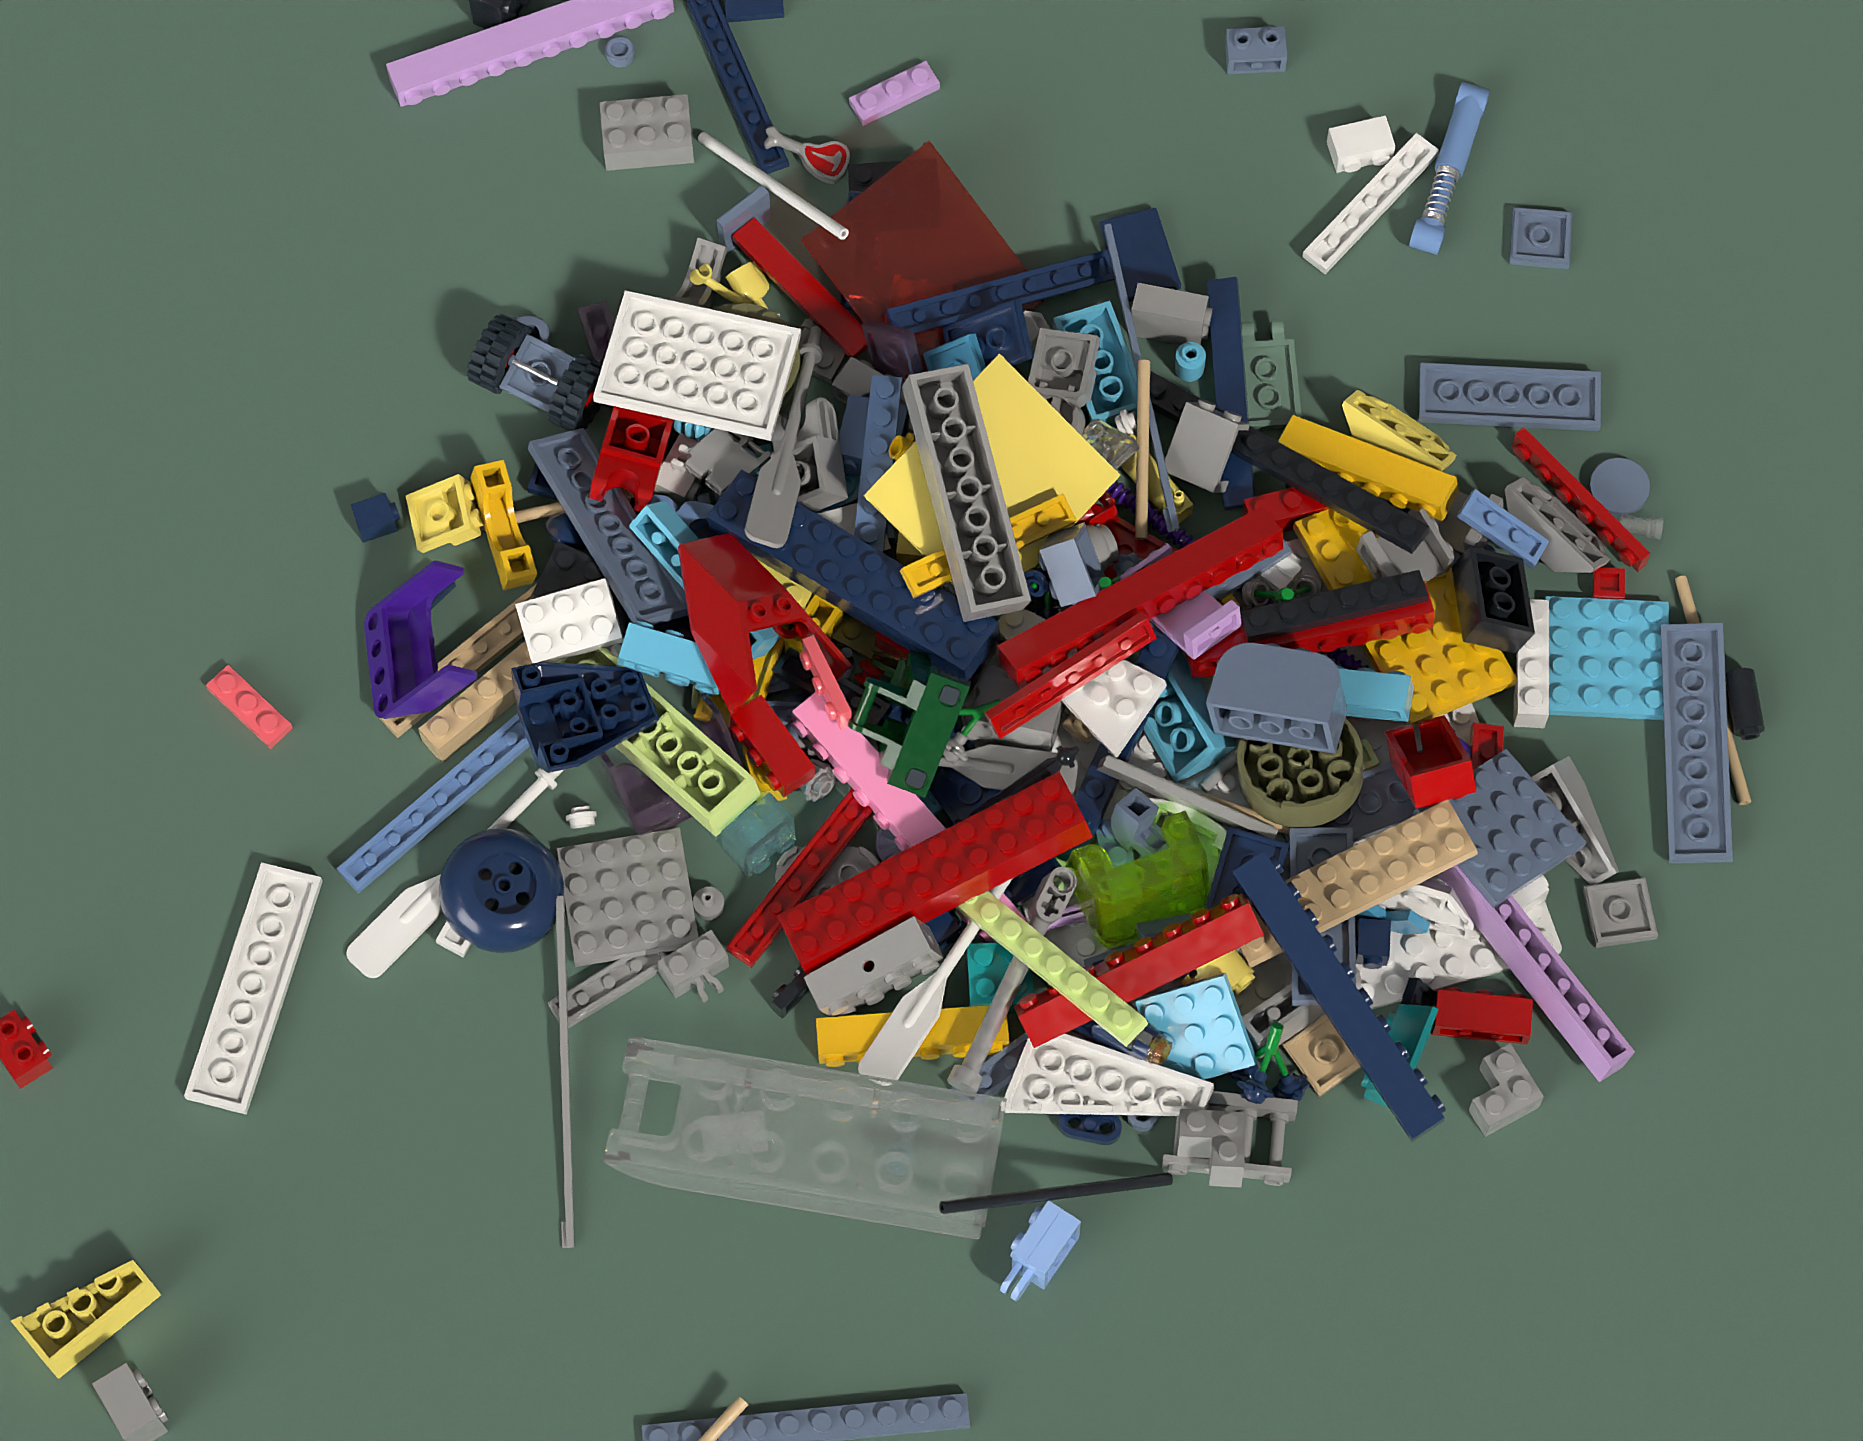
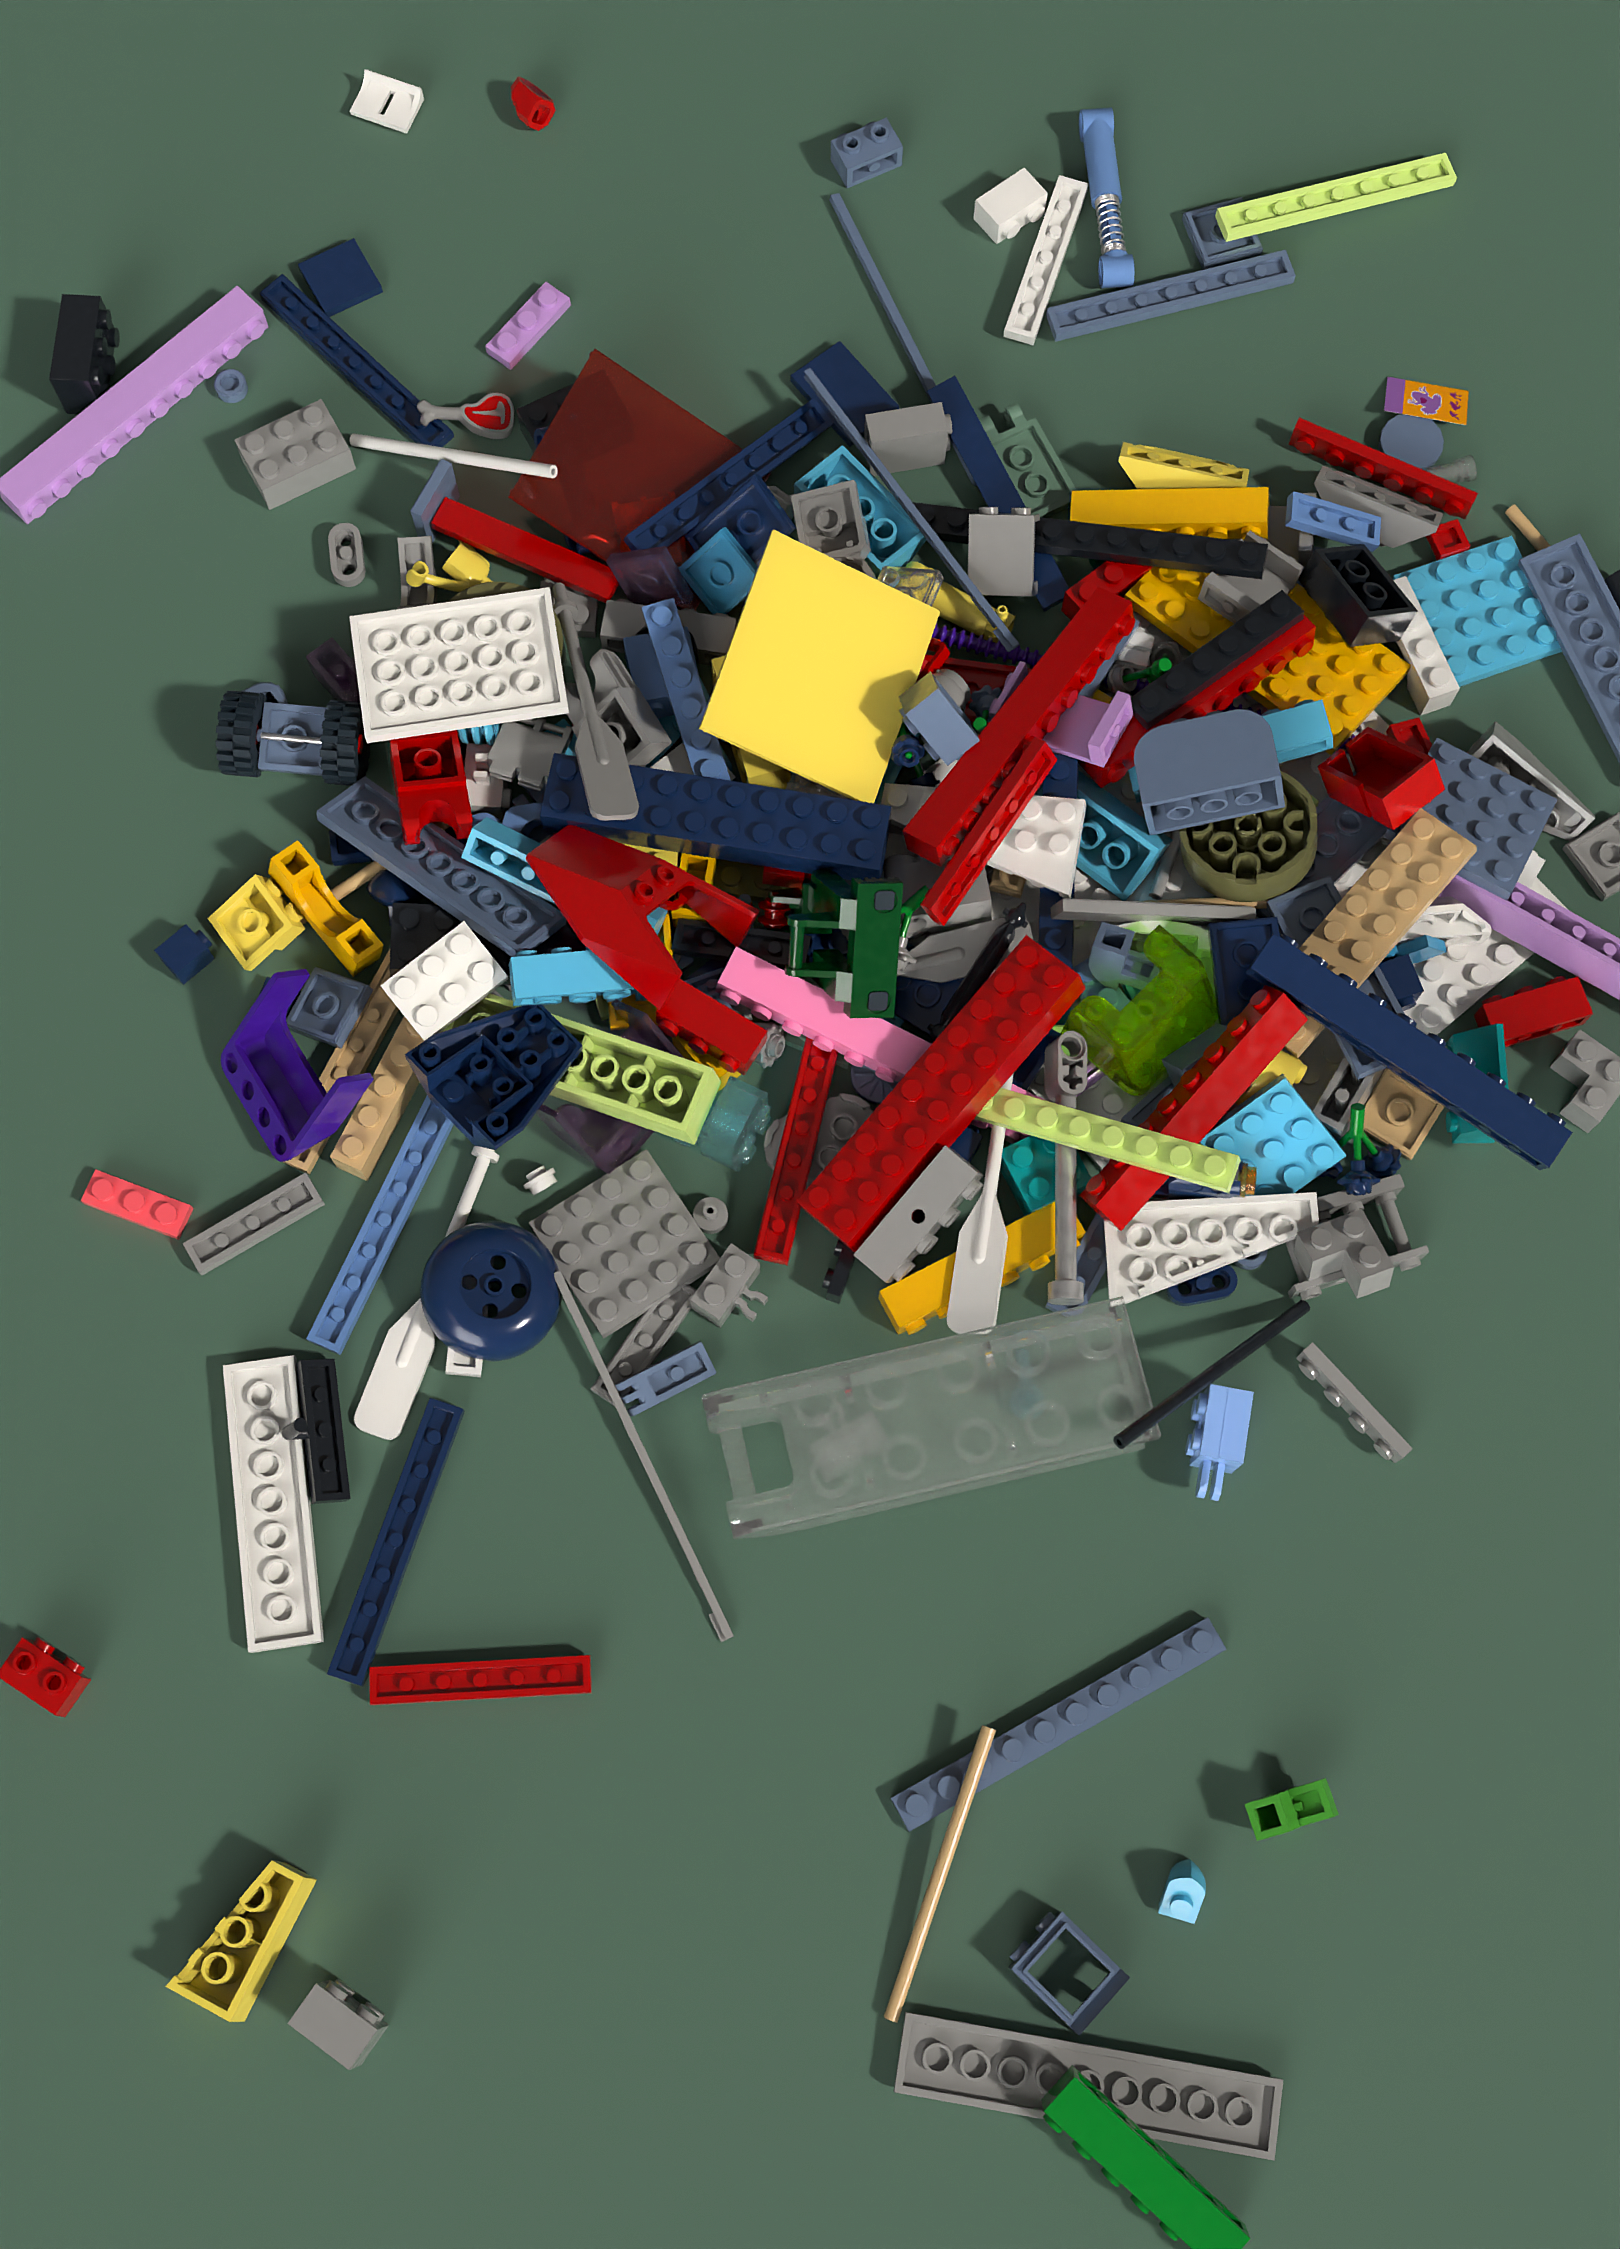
camera: 25 degrees left, 5 degrees up
(316, 946) = (321, 1431): none -> black plate
(335, 759) = (253, 1224): none -> light grey plate
(338, 1059) = (396, 1542): none -> dark blue plate
(356, 1195) = (480, 1680): none -> red plate
(471, 607) = (328, 1007): none -> sand blue tile
(612, 1018) = (667, 1377): none -> sand blue hinge
(652, 236) = (346, 557): none -> light grey plate
(825, 682) = (742, 939): coral plate -> none
(900, 445) = (706, 670): yellow plate -> none
(966, 492) = (806, 683): light grey brick -> none
(1026, 526) = (845, 732): yellow plate -> none
(1127, 422) = (917, 558): white plate -> none
(1142, 458) = (948, 584): tan piece -> none
(1173, 1286) = (1344, 1394): none -> light grey plate
(1190, 361) = (945, 477): medium azure brick -> none
(1214, 177) = (886, 301): none -> sand blue piece
(1418, 993) = (1461, 1017): black plate -> none
(1466, 276) = (1170, 295): none -> sand blue plate
(1509, 397) = (1267, 396): sand blue plate -> none
(1651, 455) = (1426, 400): none -> sticker
(1655, 243) = (1335, 197): none -> yellowish green plate

